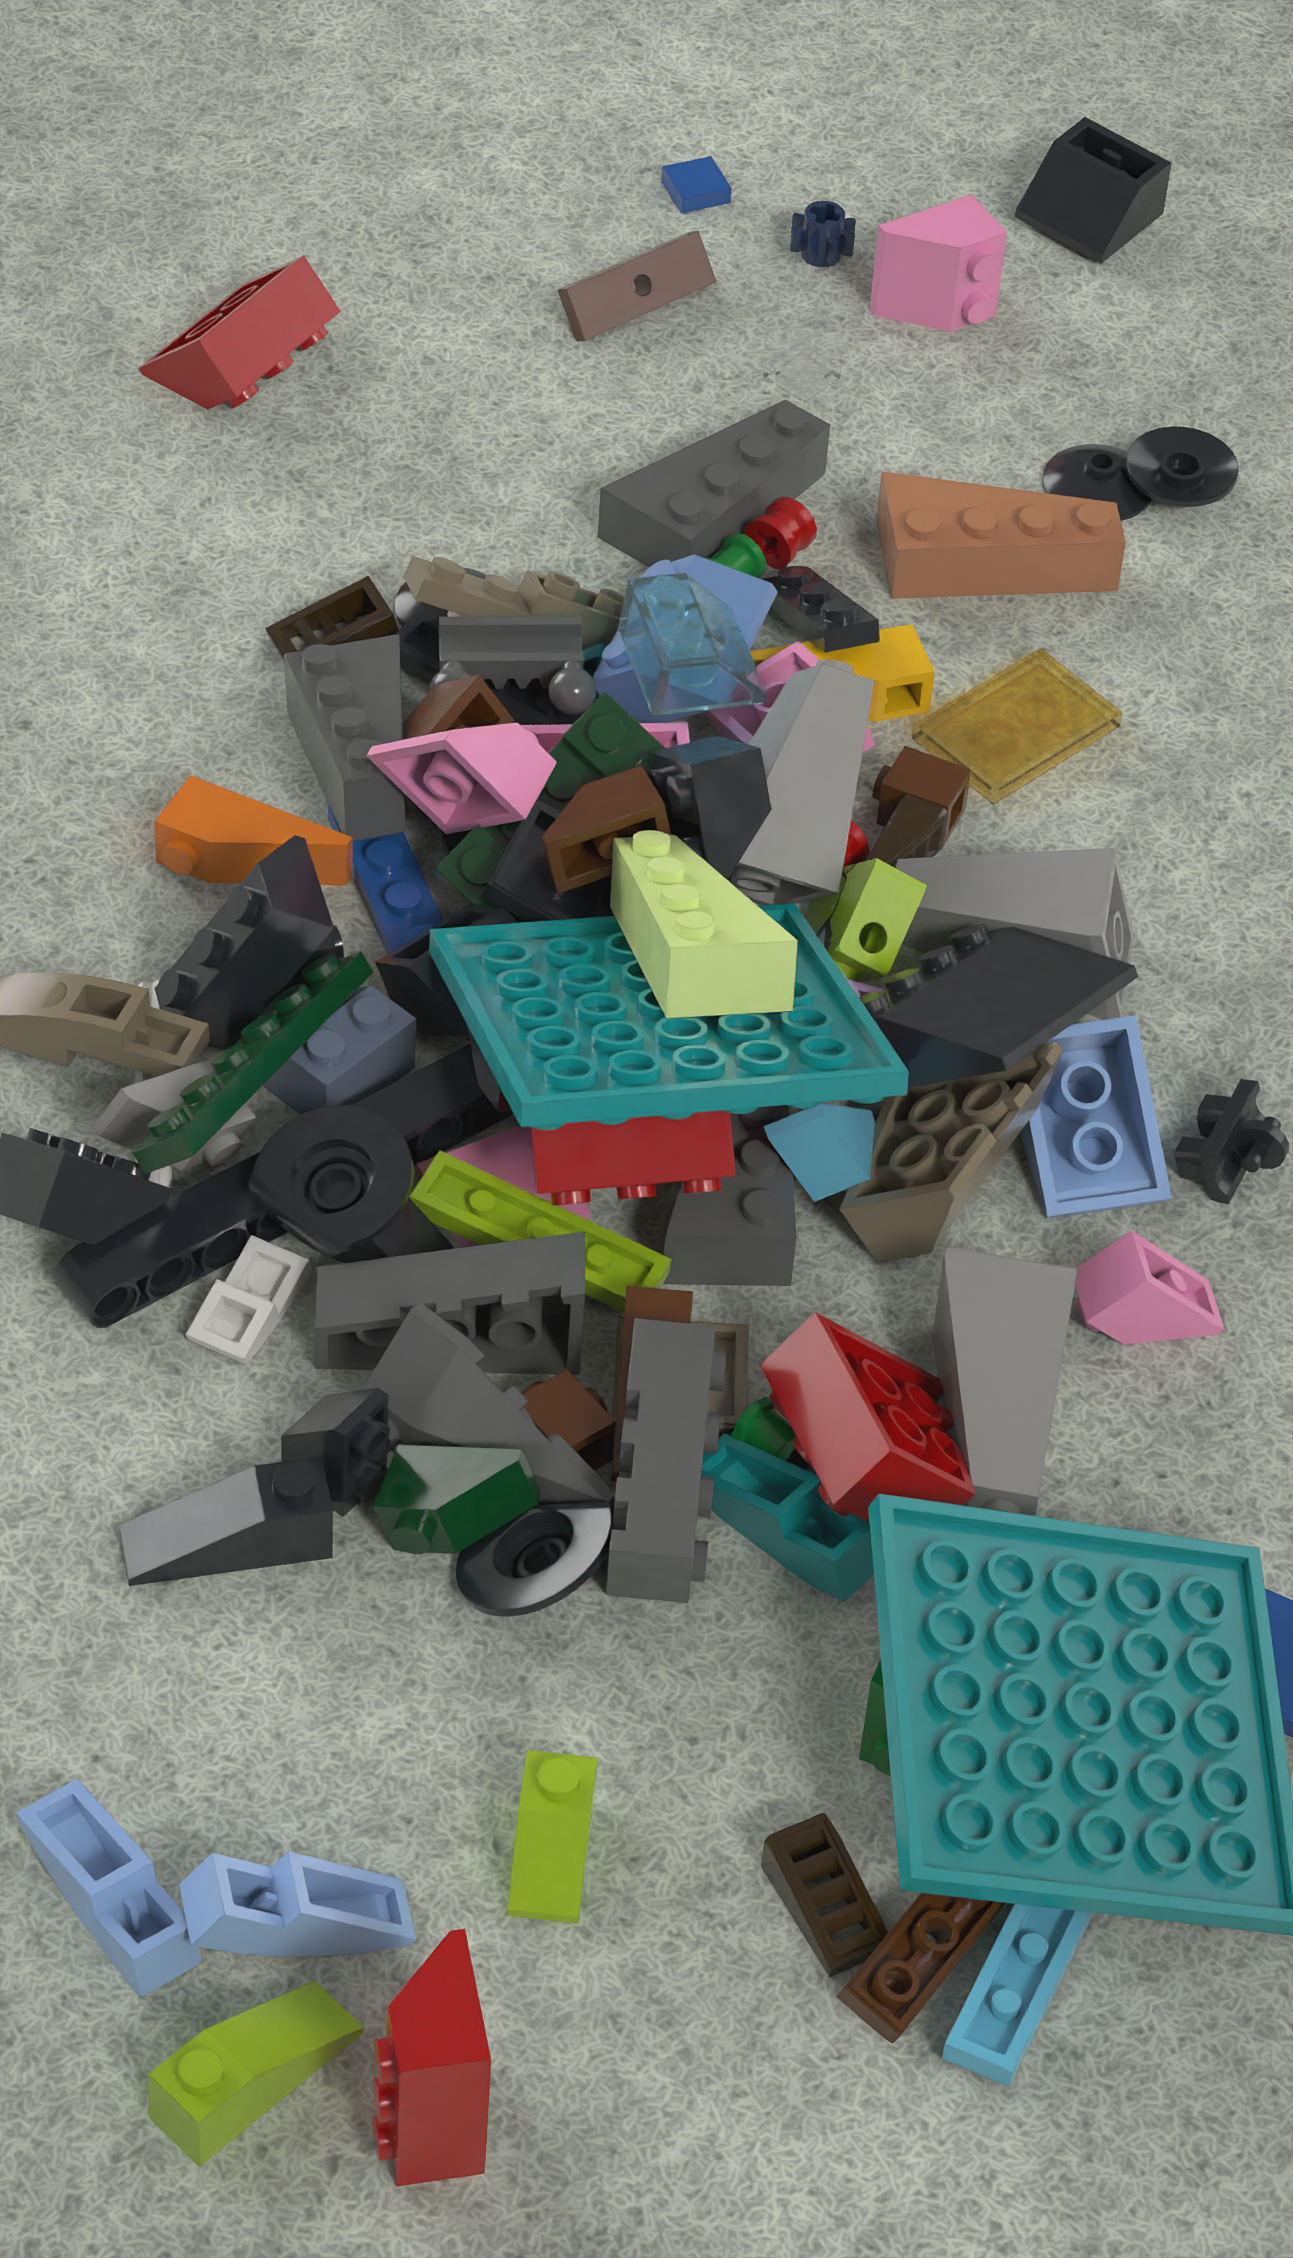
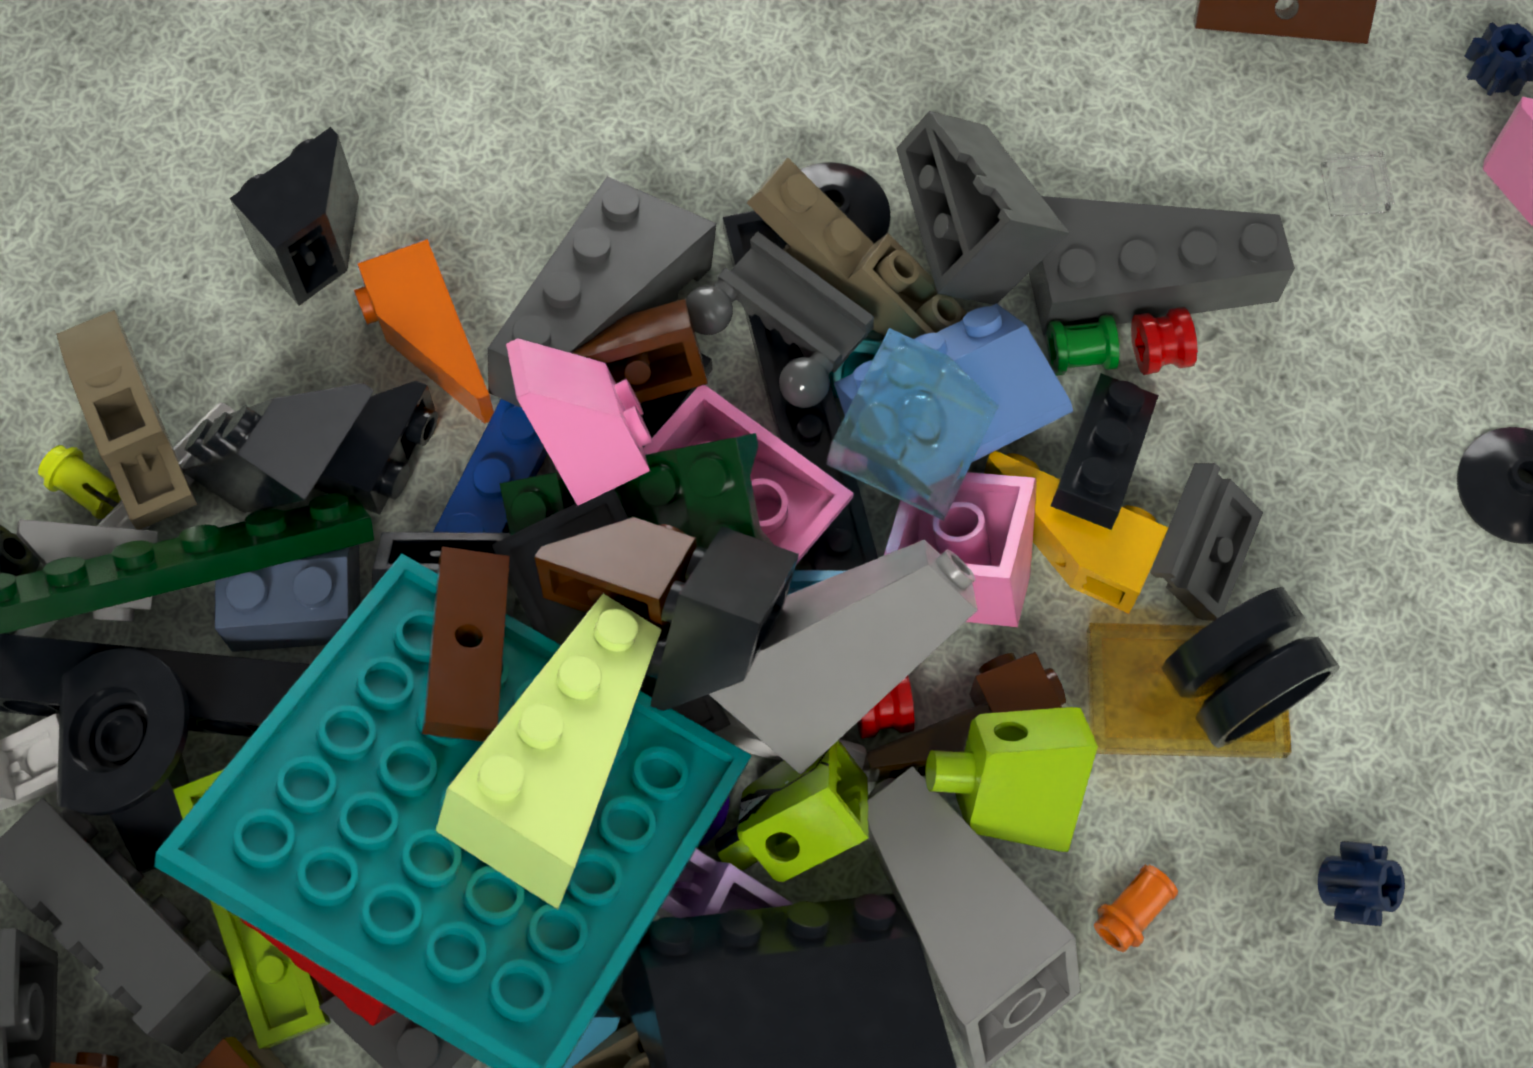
camera: 45 degrees right, 20 degrees up
(77, 821) = (302, 216): none -> black slope
(81, 1098) = (68, 472): none -> neon yellow pin
(342, 606) = (725, 193): dark brown slope -> none
(553, 927) = (466, 645): none -> reddish brown tile
(572, 520) = (974, 209): none -> dark grey wedge
(941, 626) = (1207, 542): none -> dark grey plate
(976, 806) = (1020, 775): none -> lime torso
(994, 540) = (1345, 486): nougat wedge -> none
(1046, 652) = (1249, 666): none -> black wheel
(1124, 839) = (1135, 909): none -> orange pin
(1244, 748) = (1361, 883): none -> dark blue gear

